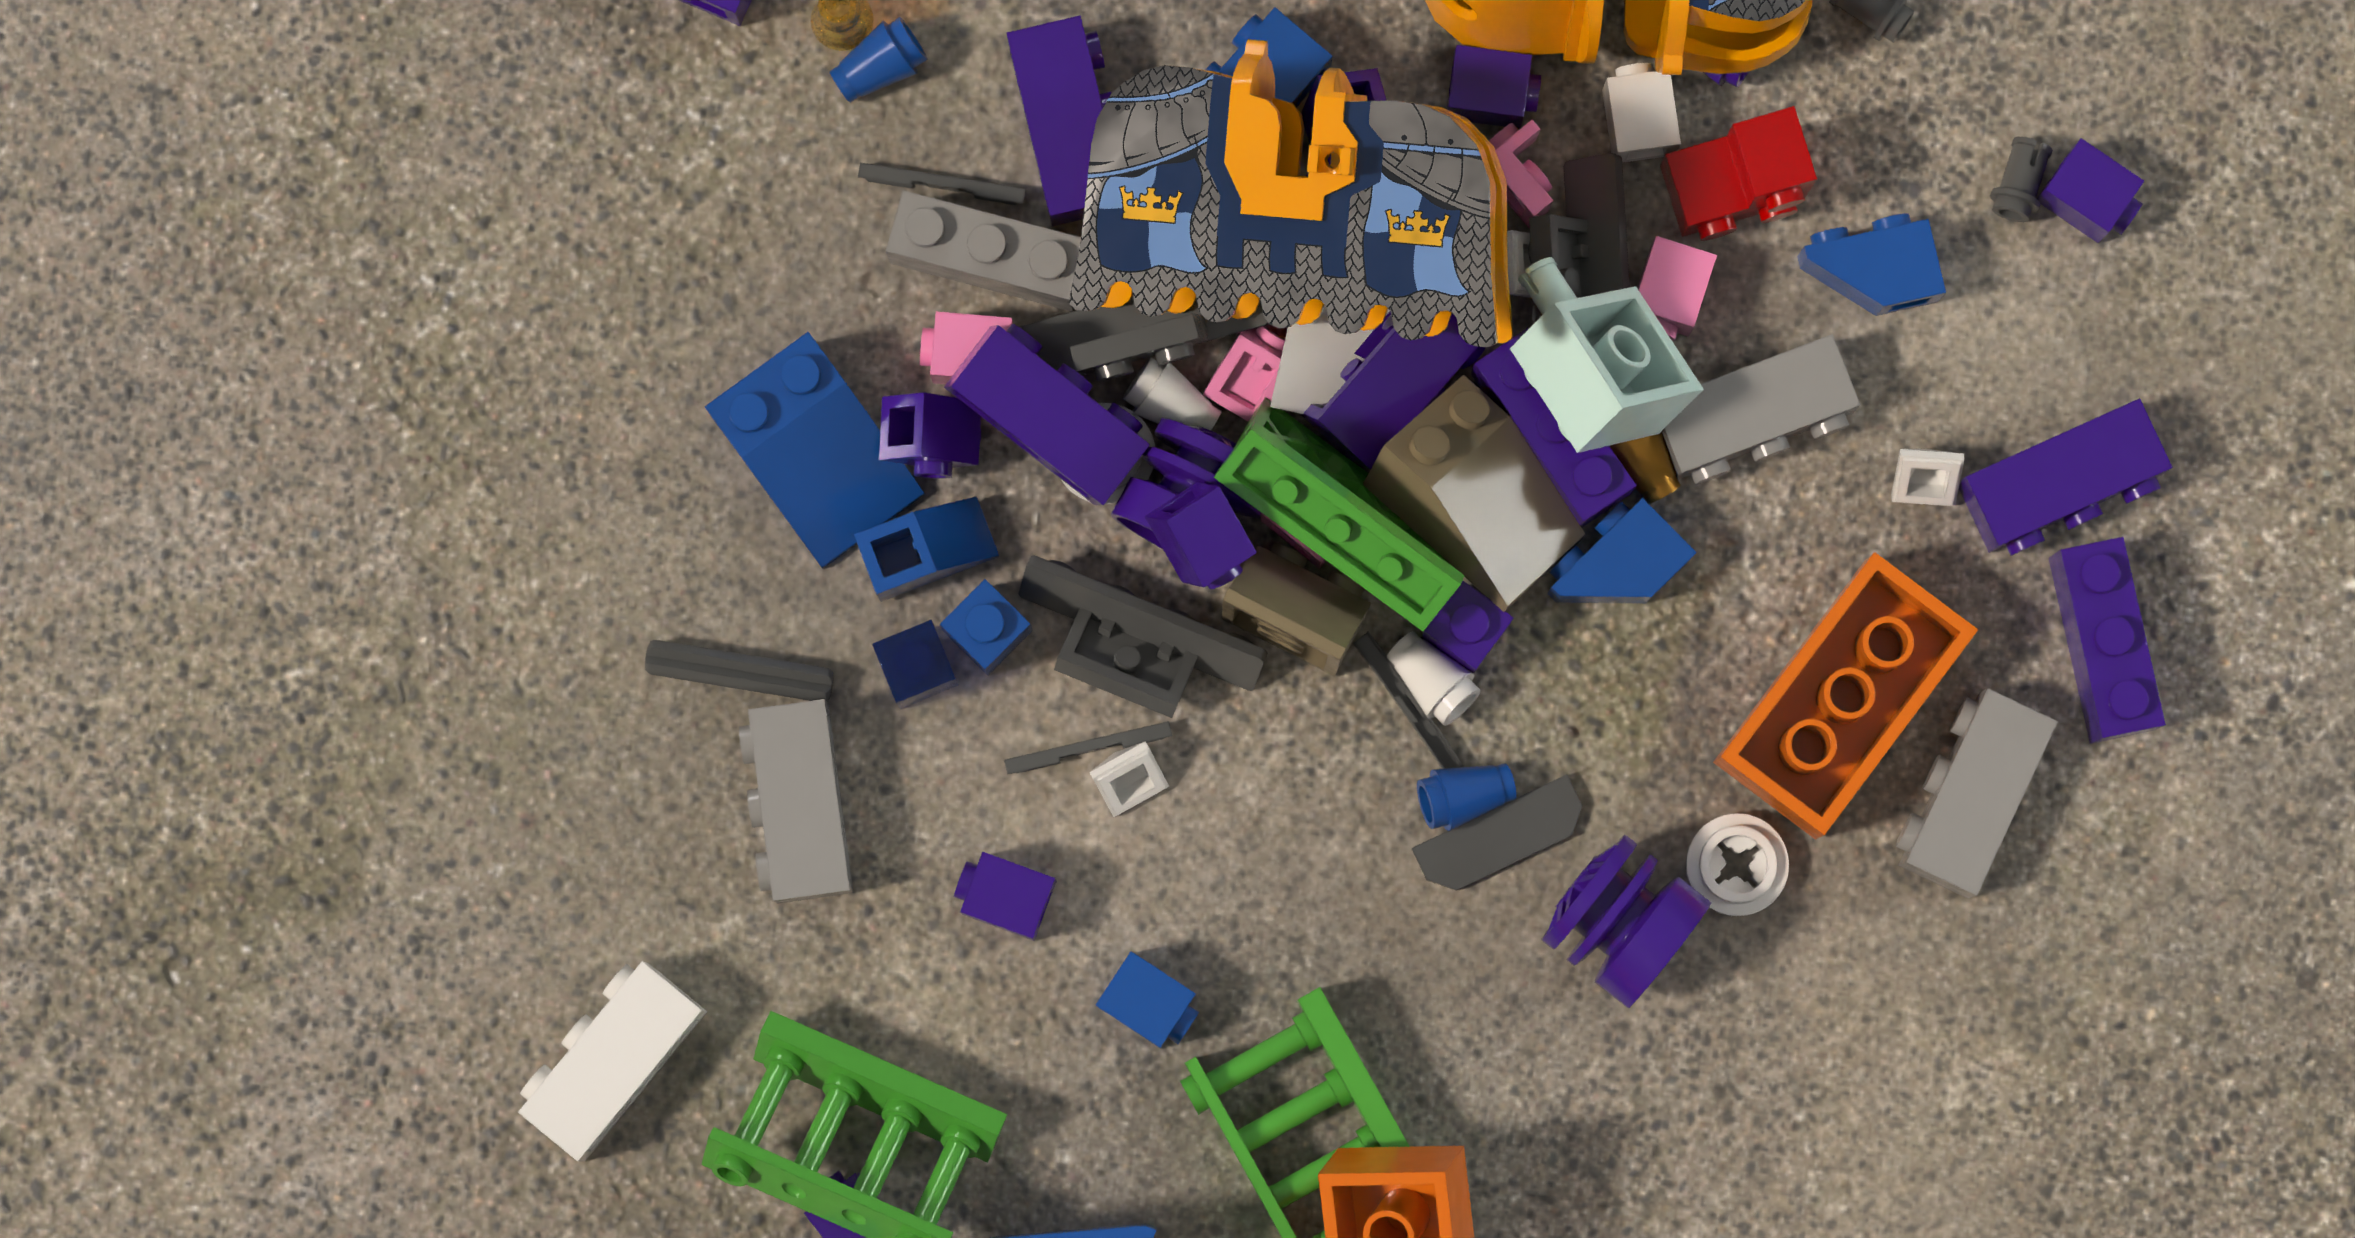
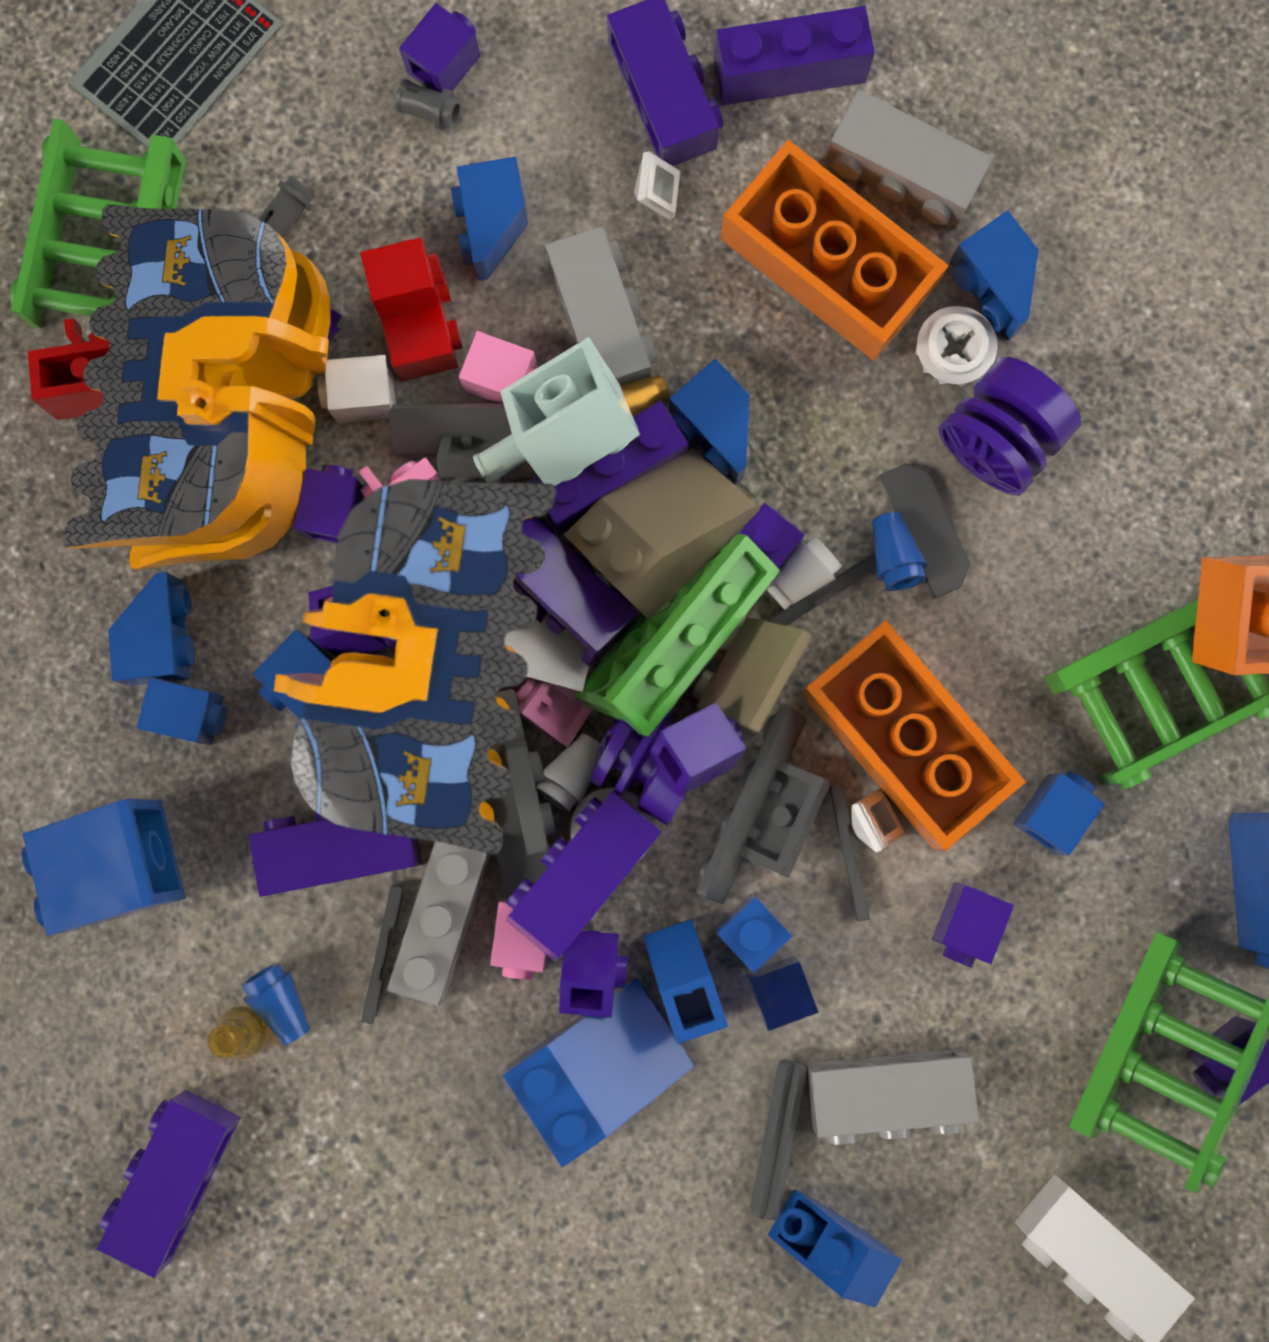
camera: 85 degrees left, 0 degrees up
(614, 740) = (835, 1249): none -> blue slope
(1233, 809) = (912, 737): none -> orange brick
(1837, 916) = (999, 272): none -> blue slope

